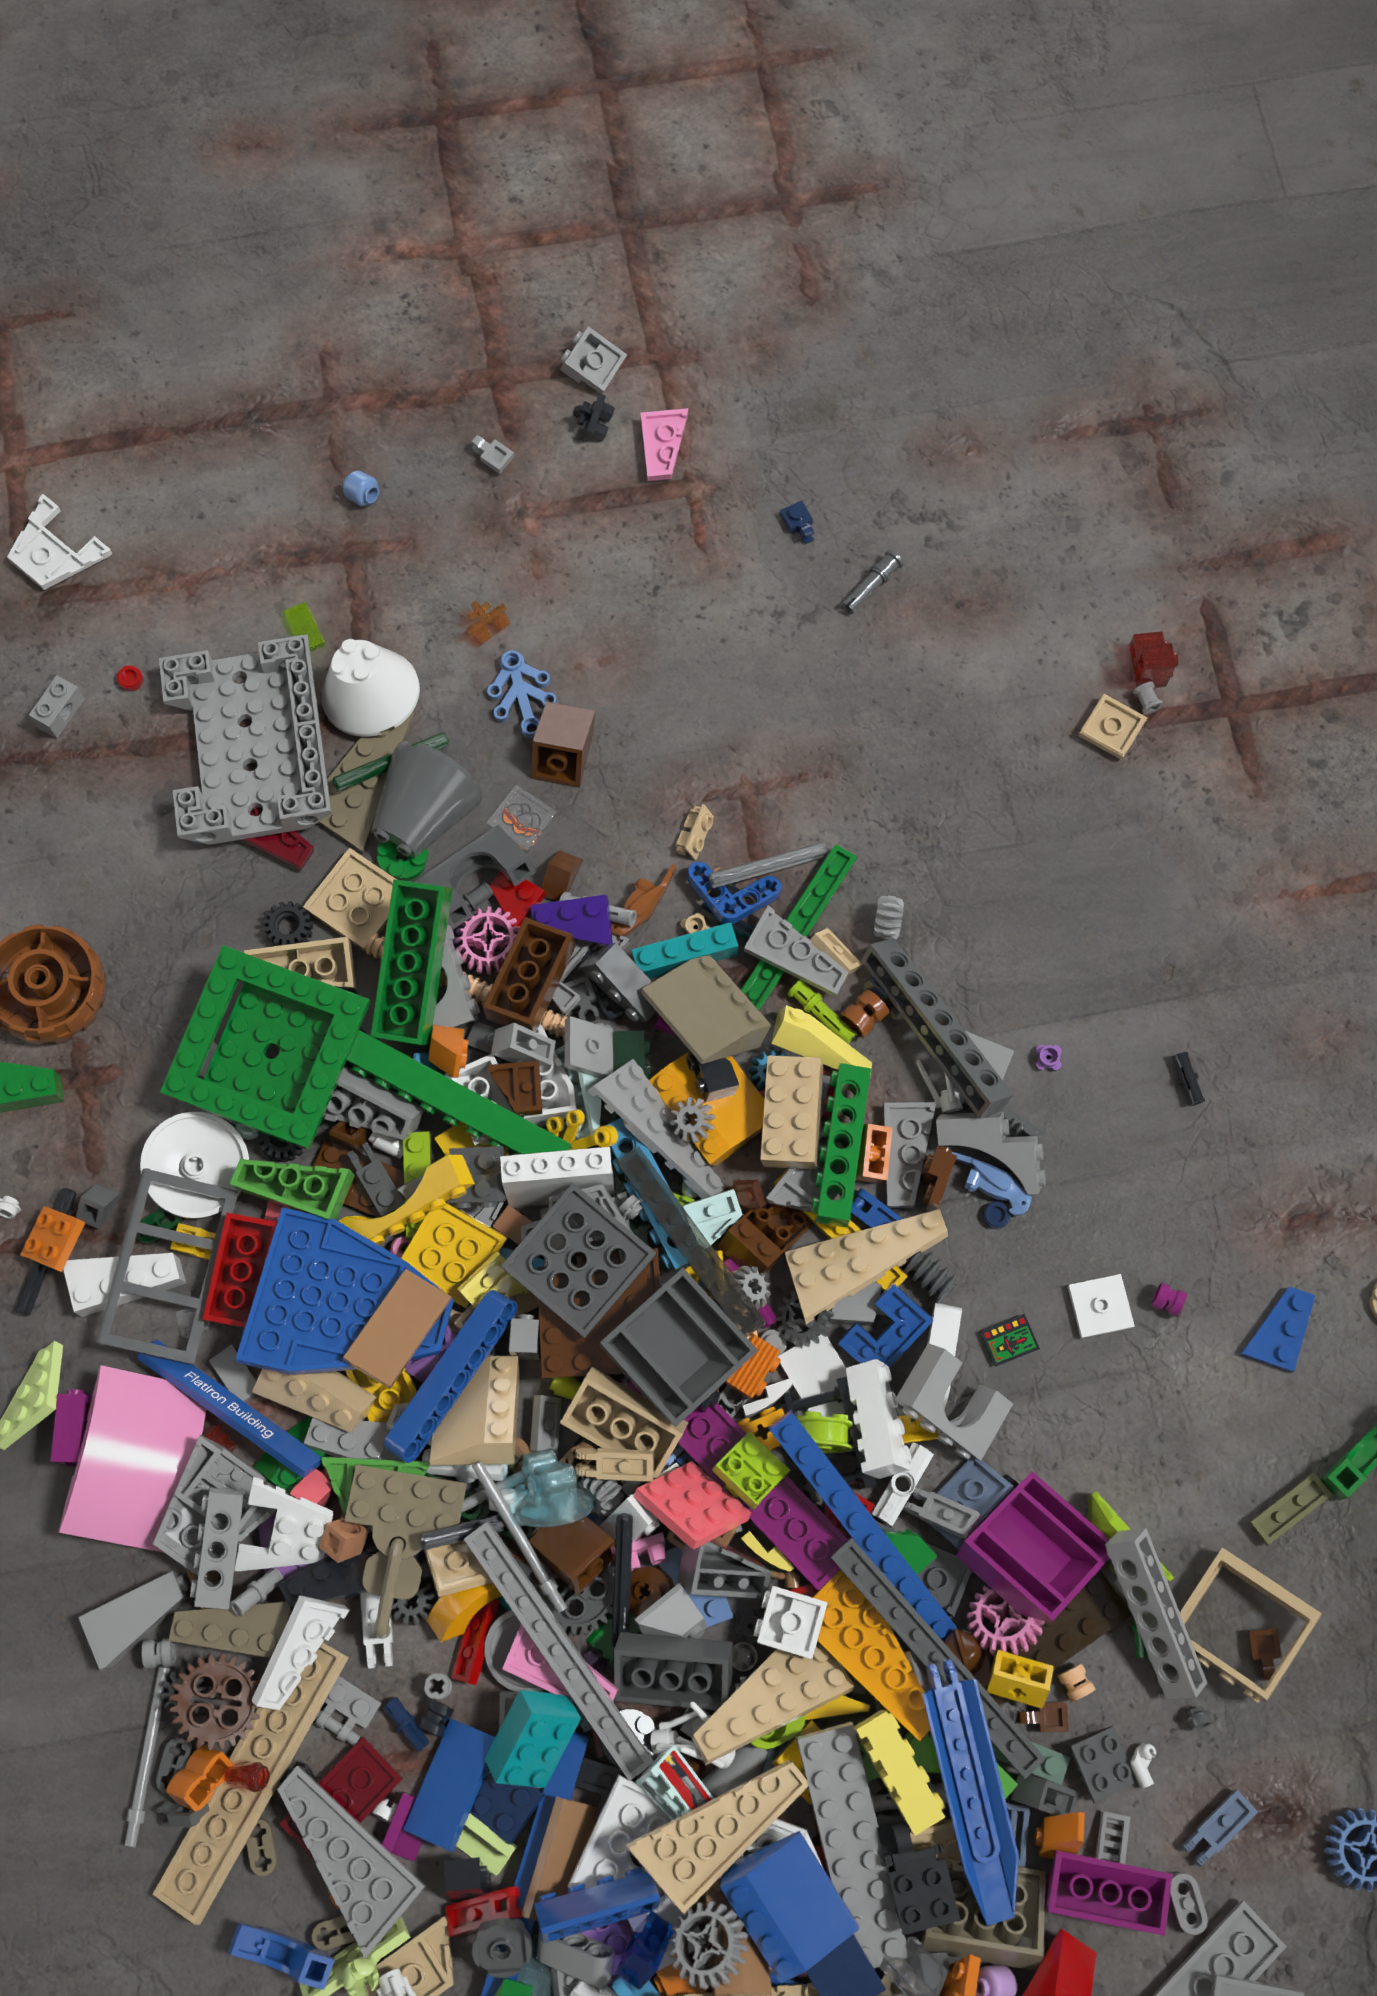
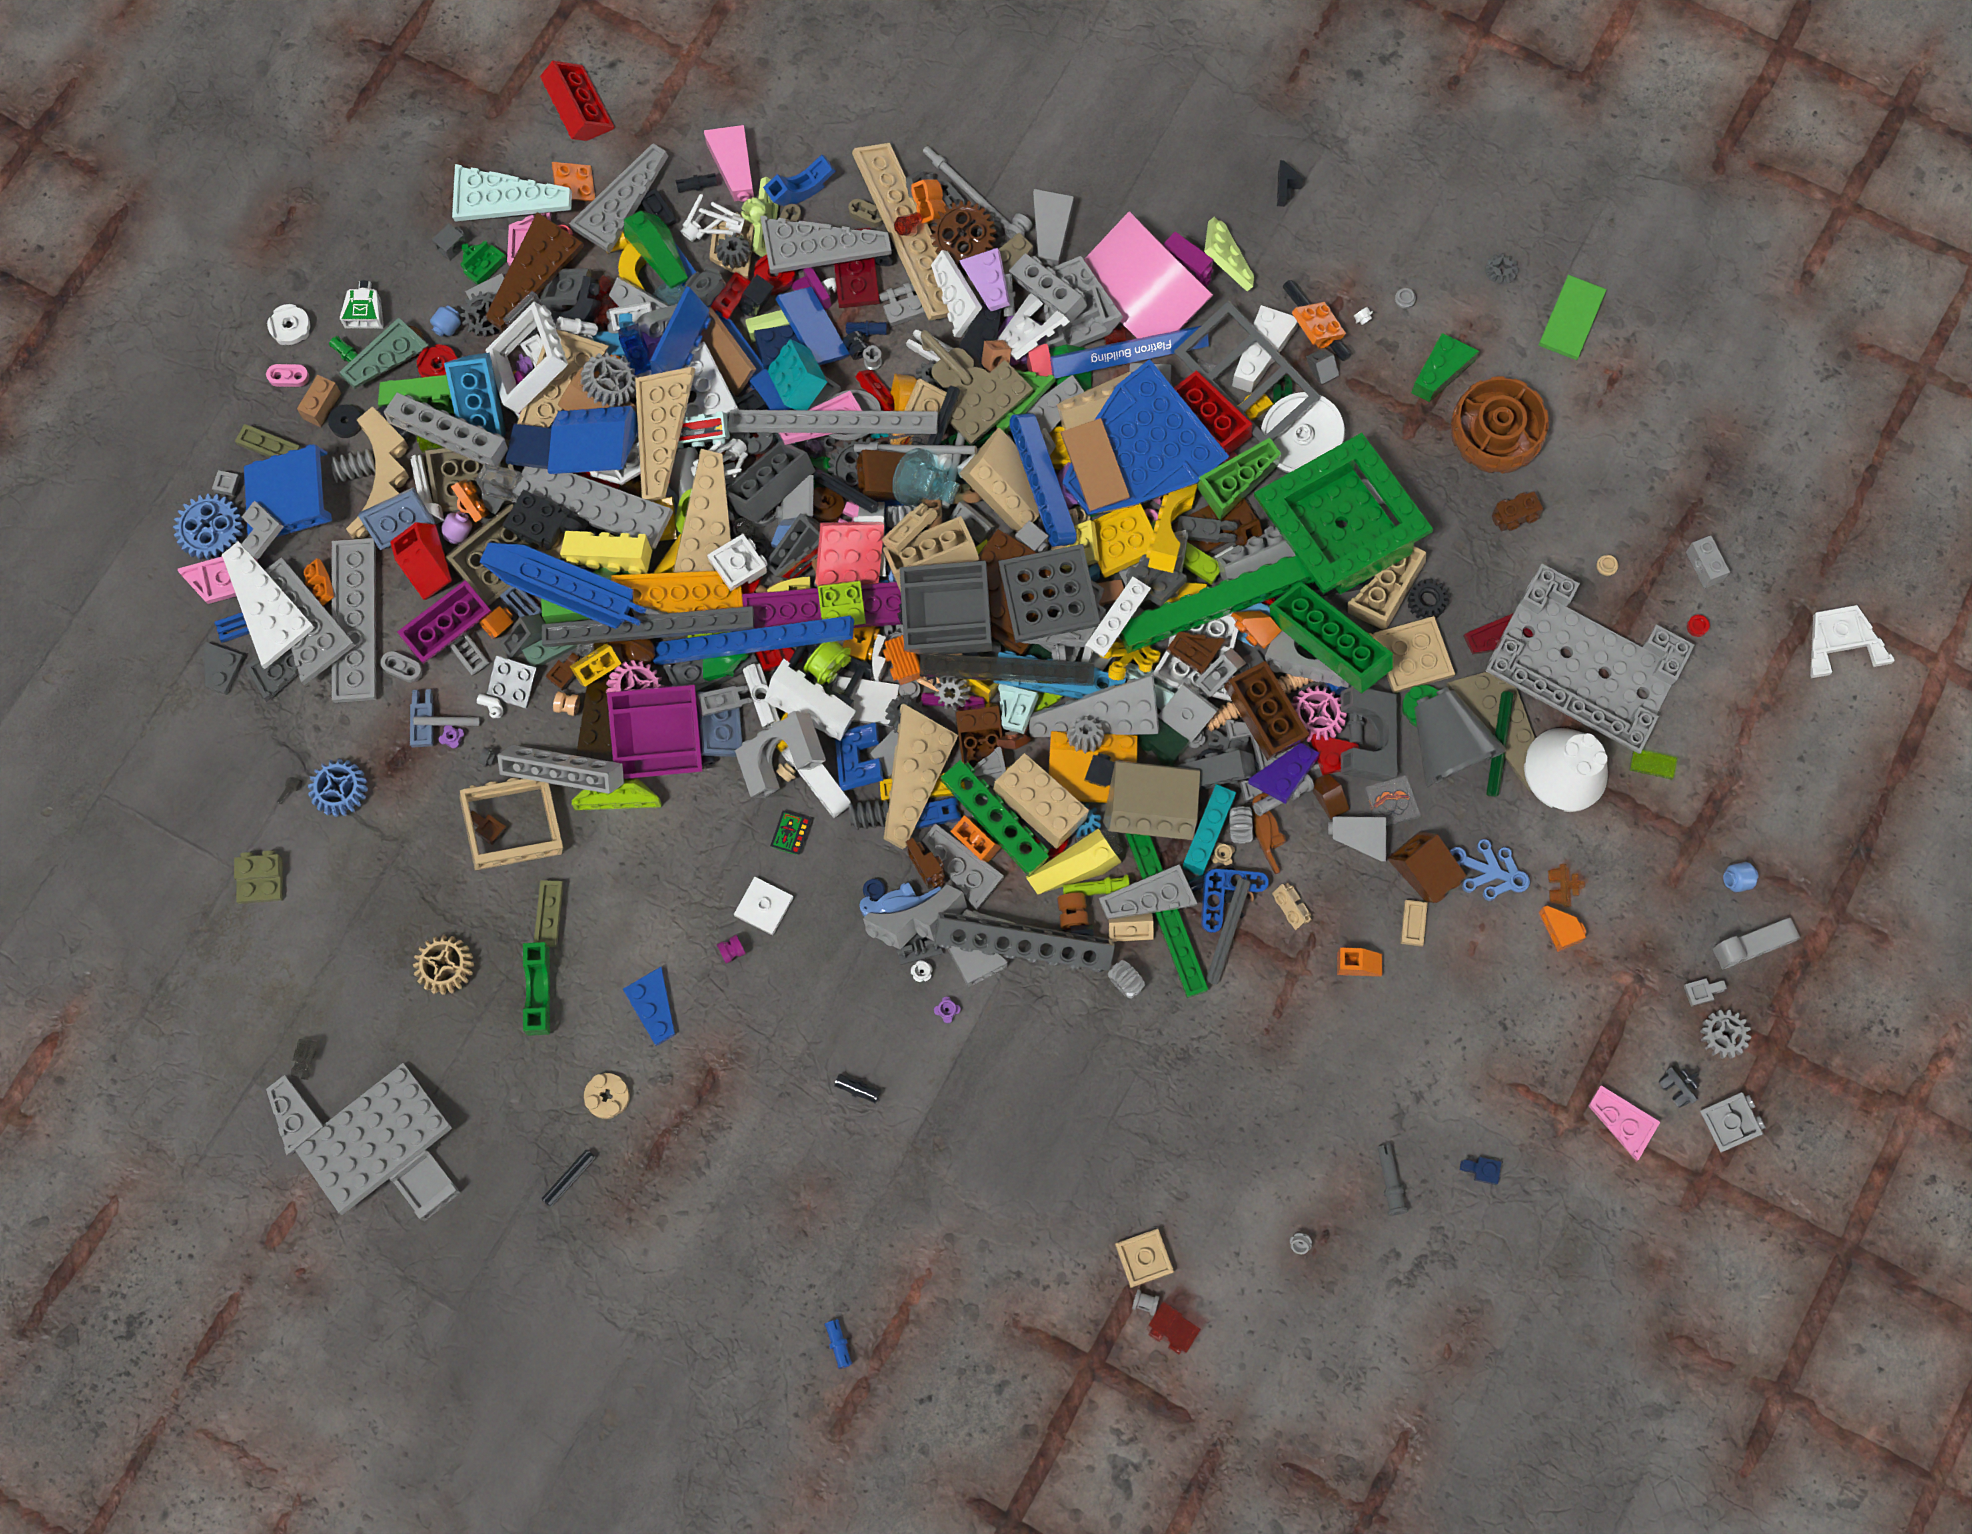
camera: 130 degrees right, 0 degrees up
(126, 793) = (1607, 565): none -> tan plate
(133, 911) = (1517, 511): none -> reddish brown brick
(255, 1621) = (988, 278): none -> lavender wing
(423, 1948) = (731, 257): none -> dark grey gear
(433, 449) = (1756, 943): none -> light grey beam
(434, 1894) = (780, 282): none -> red plate
(518, 413) = (1724, 1025): none -> light grey gear
(529, 595) = (1563, 928): none -> orange slope
(578, 817) = (1361, 834): none -> light grey slope
(623, 722) = (1413, 923): none -> tan tile
(657, 925) = (1241, 824): none -> light grey gear
(703, 737) = (1359, 962): none -> orange slope
(957, 1393) = (786, 771): none -> tan plate
(988, 614) = (1300, 1243): none -> light grey plate
(1041, 1108) = (921, 965): none -> white plate
(1181, 1775) = (448, 721): none -> light grey bar
(1202, 1773) = (451, 742): none -> medium lavender plate

